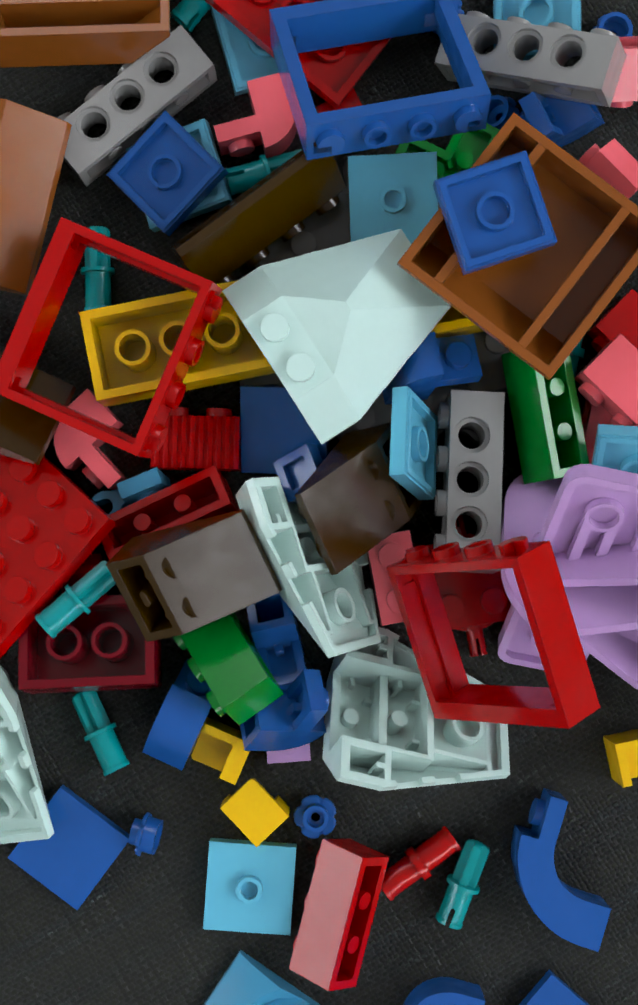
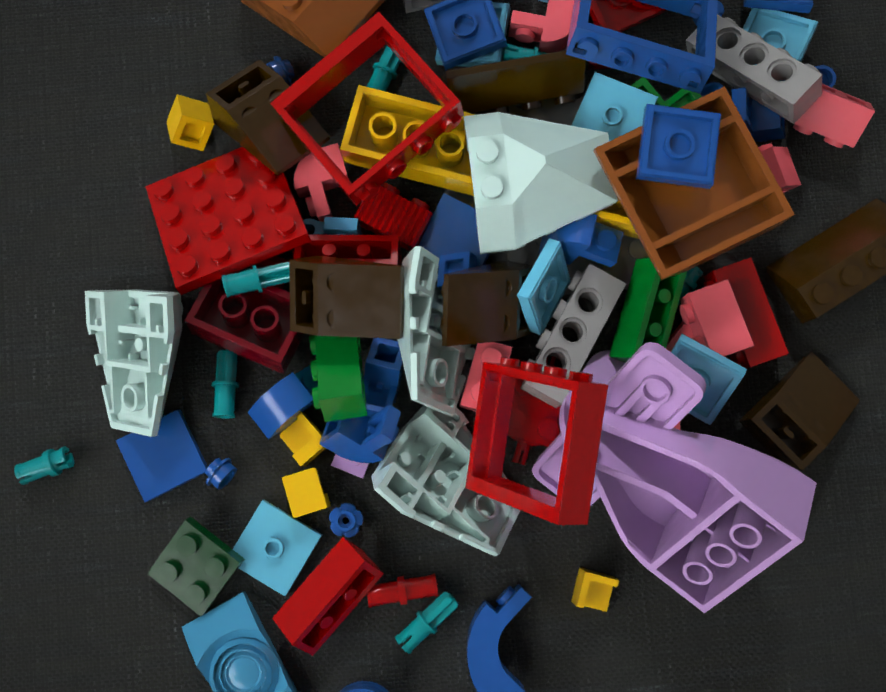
camera: 25 degrees right, 5 degrees down
(172, 952) = (195, 566): none -> dark green plate

